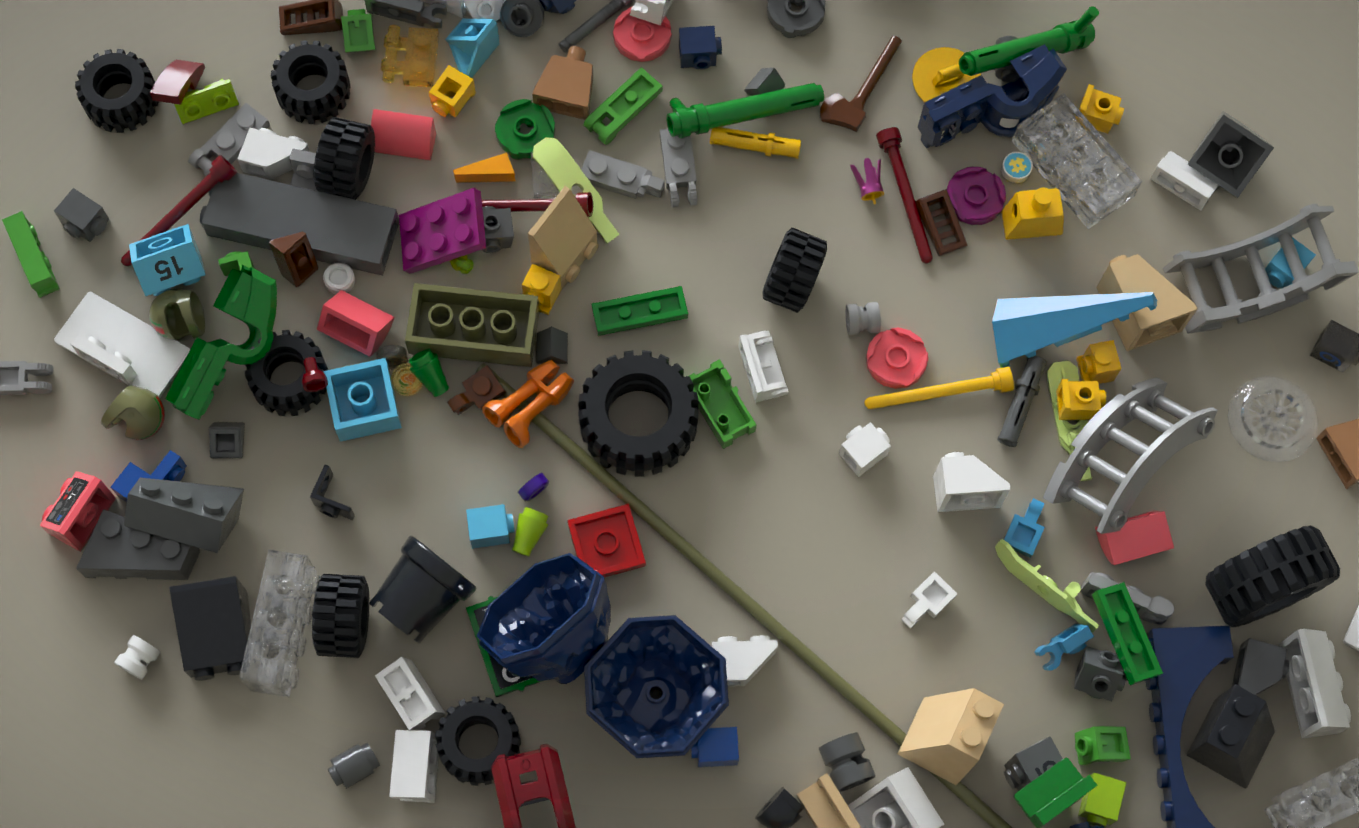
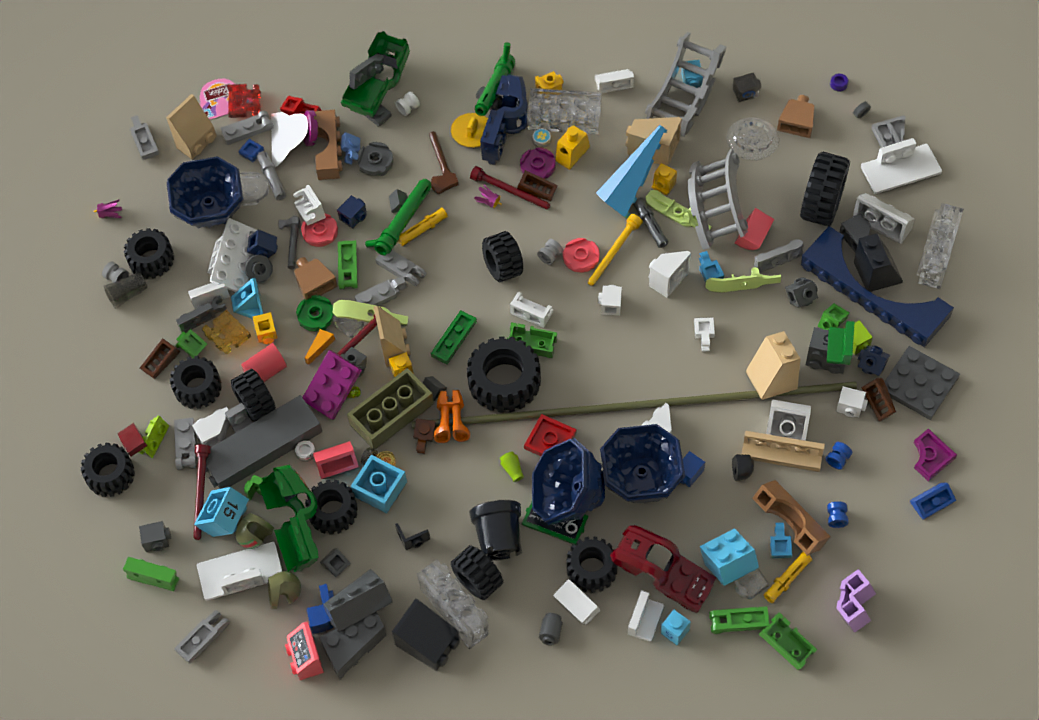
camera: 40 degrees left, 10 degrees down
(137, 657) = (405, 683): white wheel -> none
(294, 257) = (277, 454): reddish brown slope -> none
(313, 379) = (351, 491): dark red piece -> none
(409, 693) = (540, 576): white hinge -> none
(429, 372) = (393, 445): green cone -> none
(489, 526) = (493, 480): medium azure brick -> none
(533, 487) = (493, 450): dark purple tile -> none
(847, 762) = (746, 421): dark grey wheel -> none
(1069, 641) = (776, 292): dark azure plate -> none
(1072, 405) = (673, 199): yellow brick -> none
(1127, 633) = (795, 264): green plate -> none
(1230, 154) = (621, 53): dark grey slope -> none

